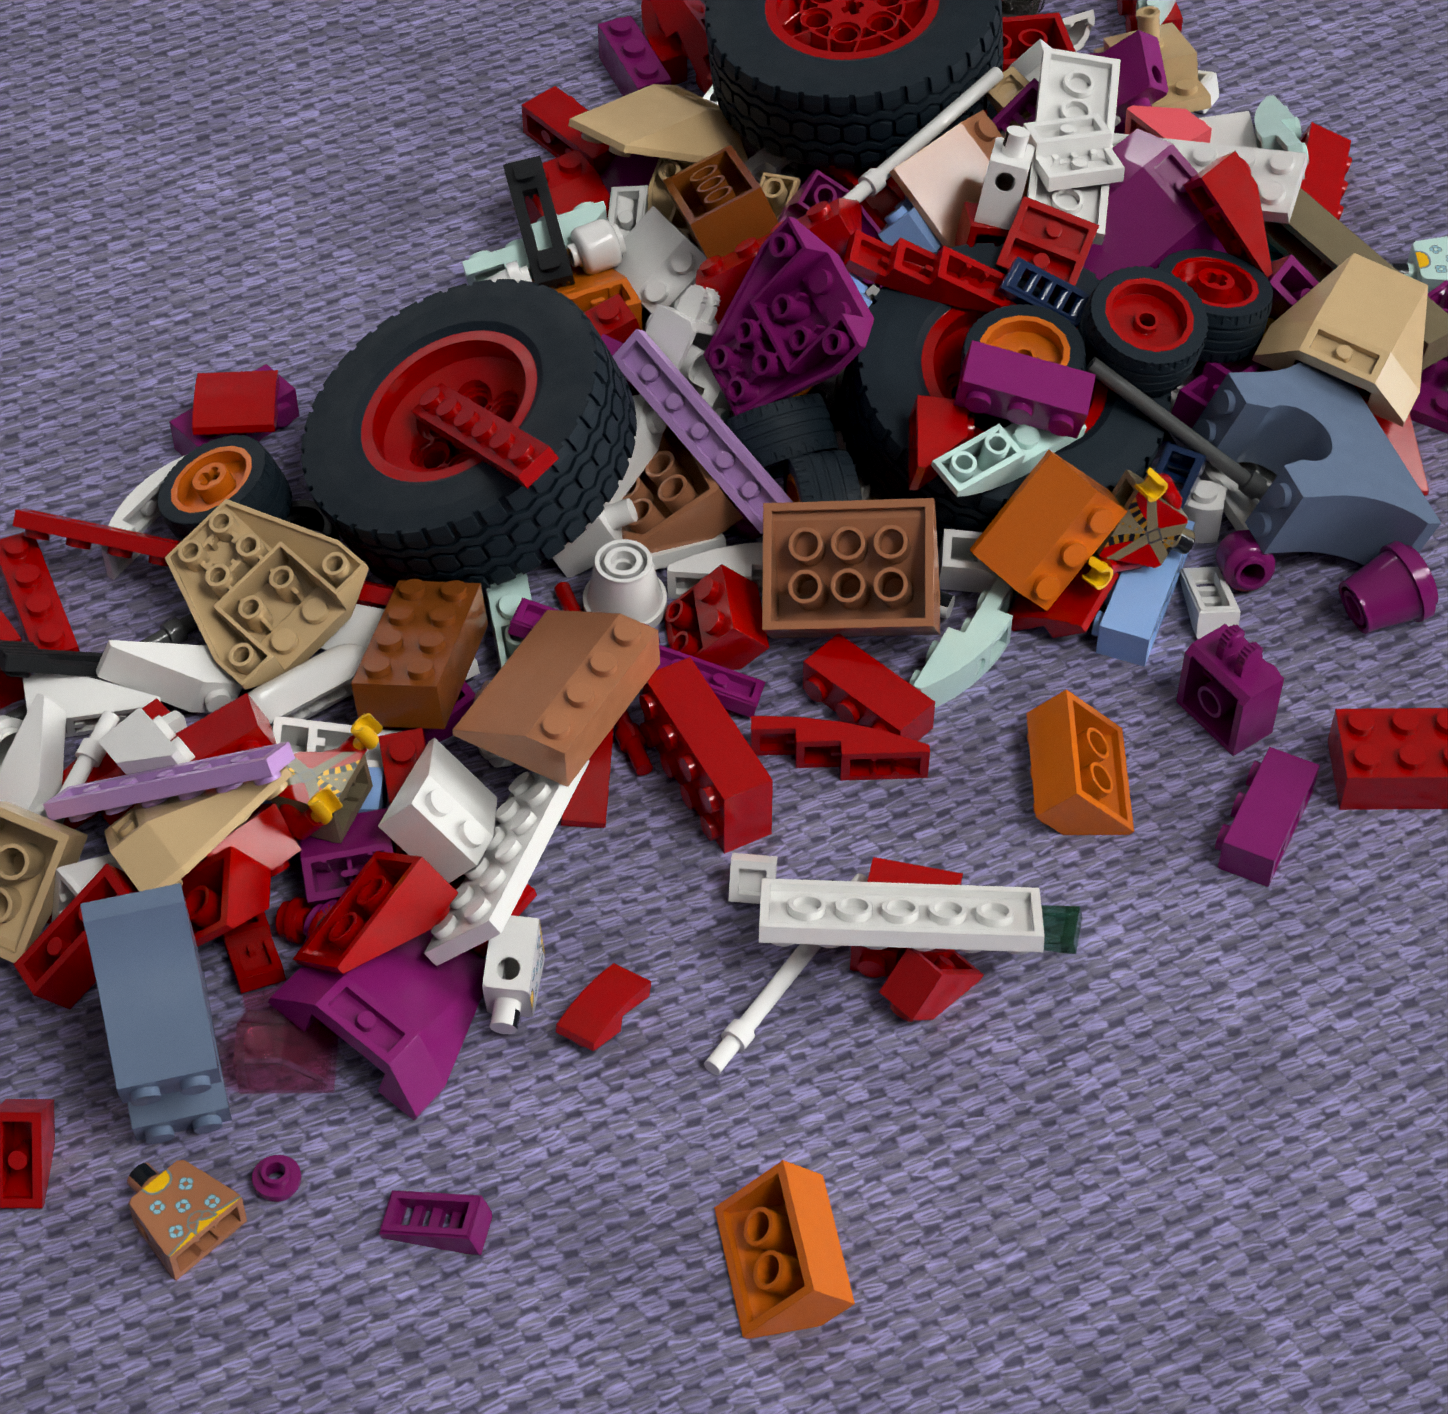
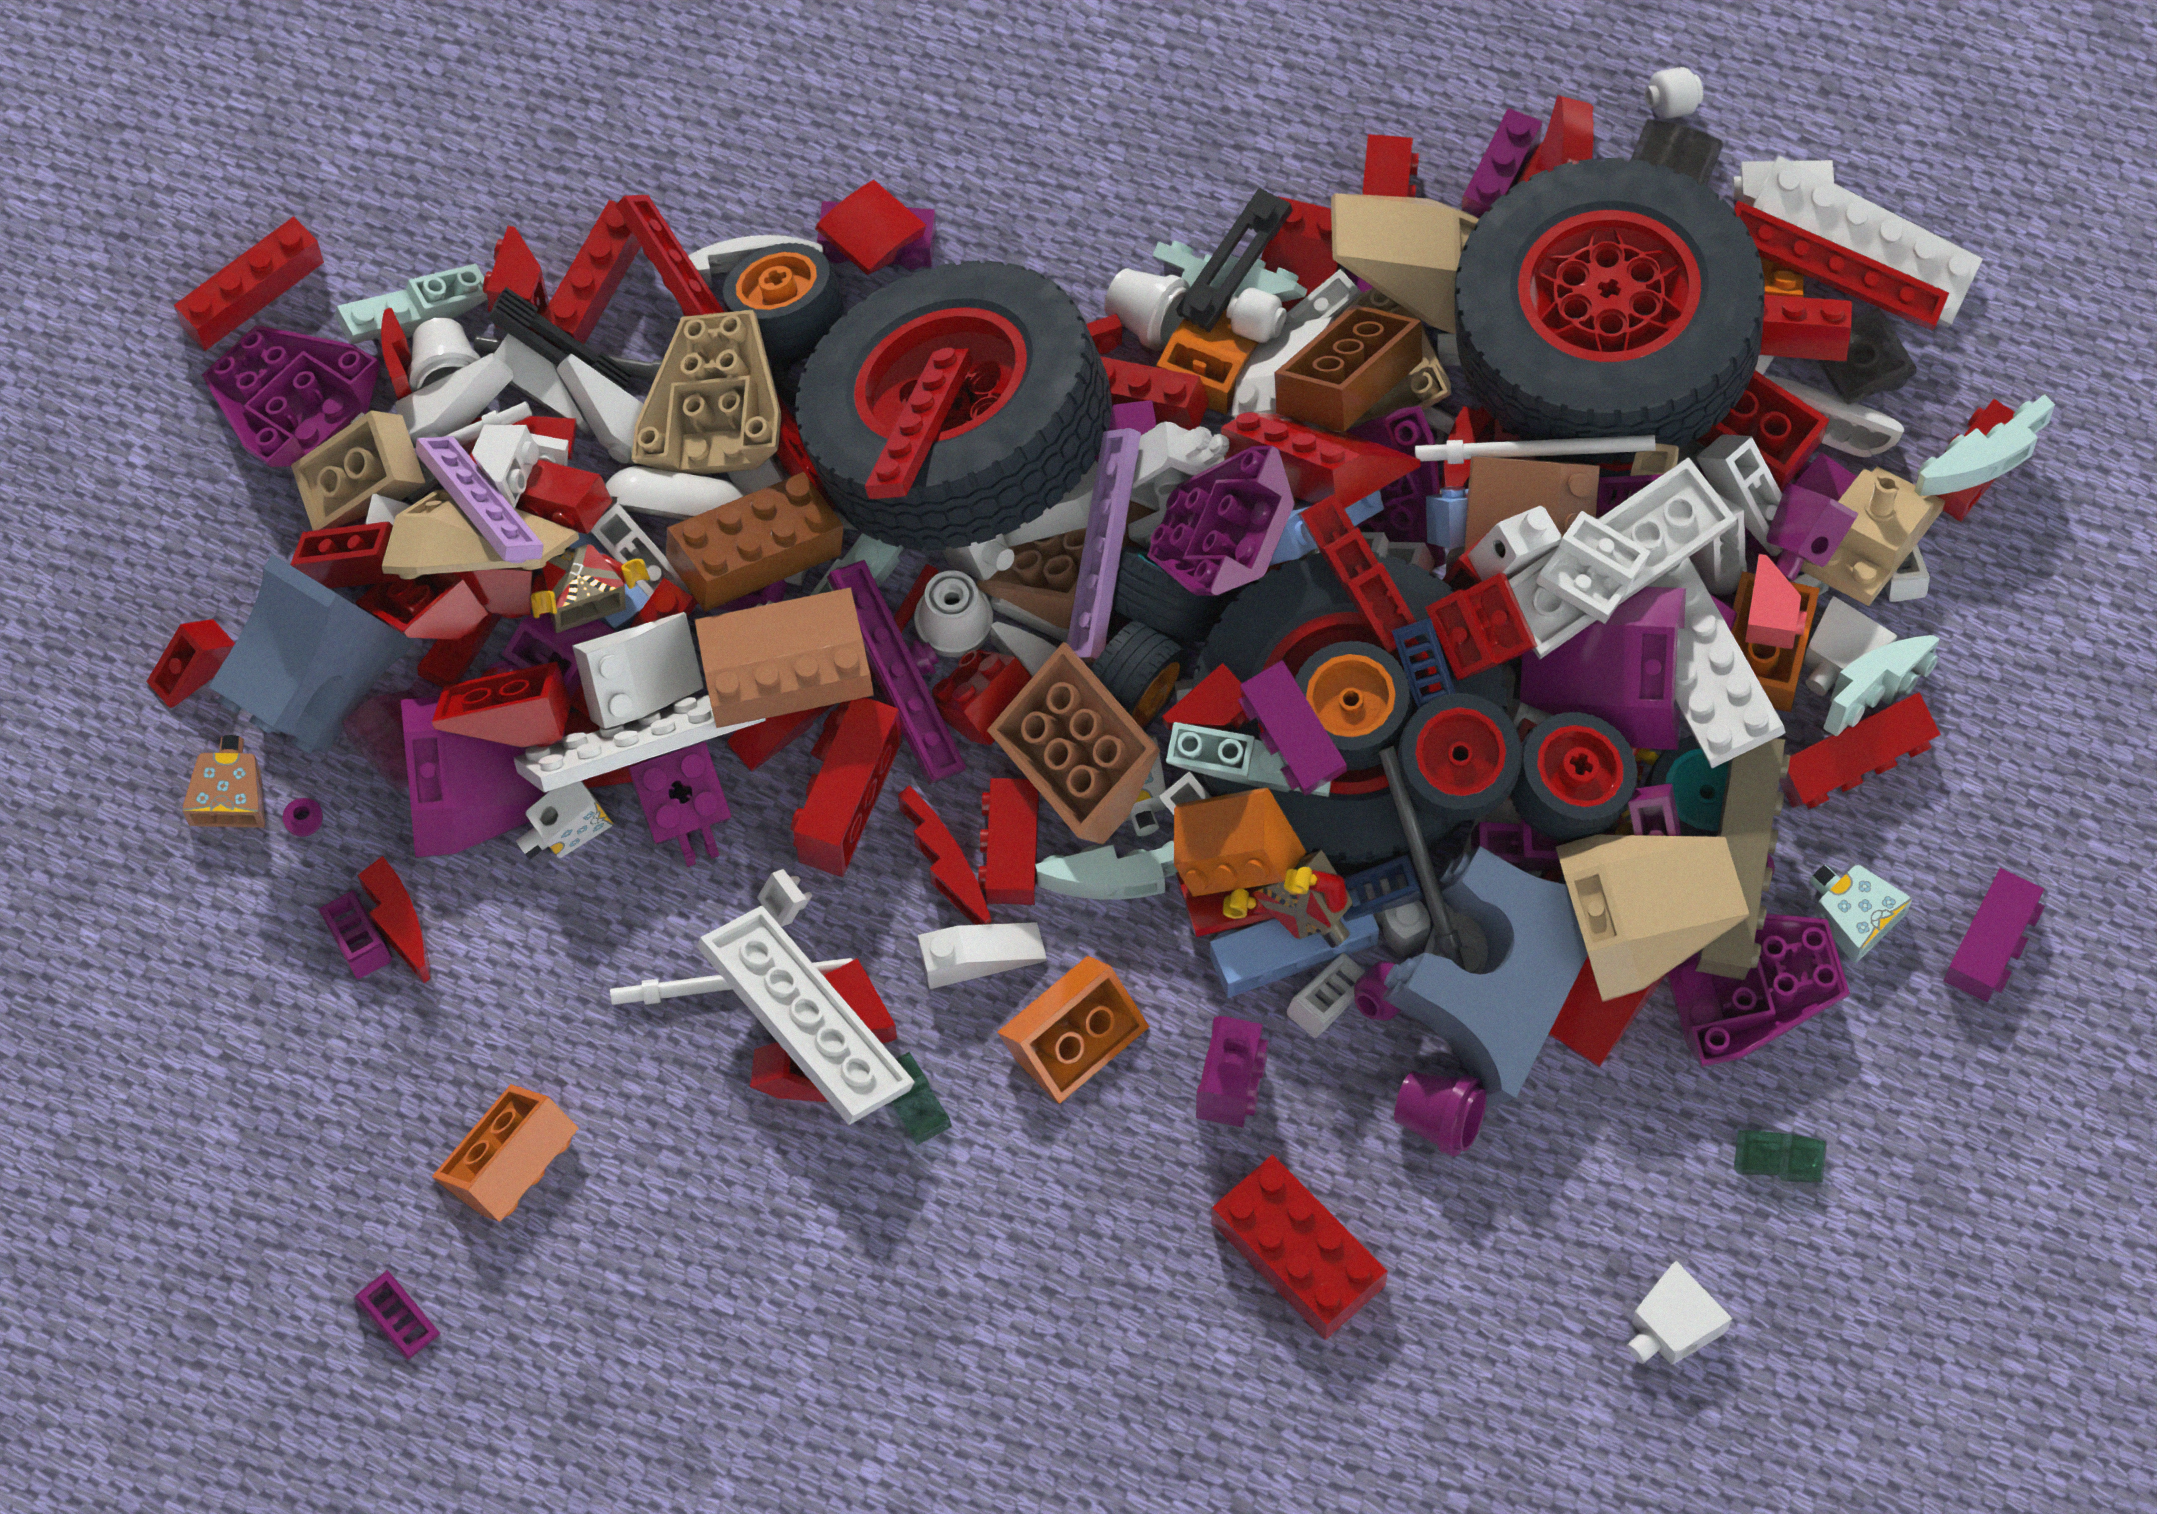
camera: 50 degrees right, 15 degrees up
(291, 919) = (491, 652): red plate -> none
(463, 1168) = (396, 916): none -> red slope
(586, 879) = (666, 816): none -> magenta hinge
(600, 1007) = (589, 892): red slope -> none
(940, 789) = (978, 951): none -> white slope
(1232, 209) = (1663, 709): red slope -> none
(1266, 816) = (1146, 1179): magenta brick -> none

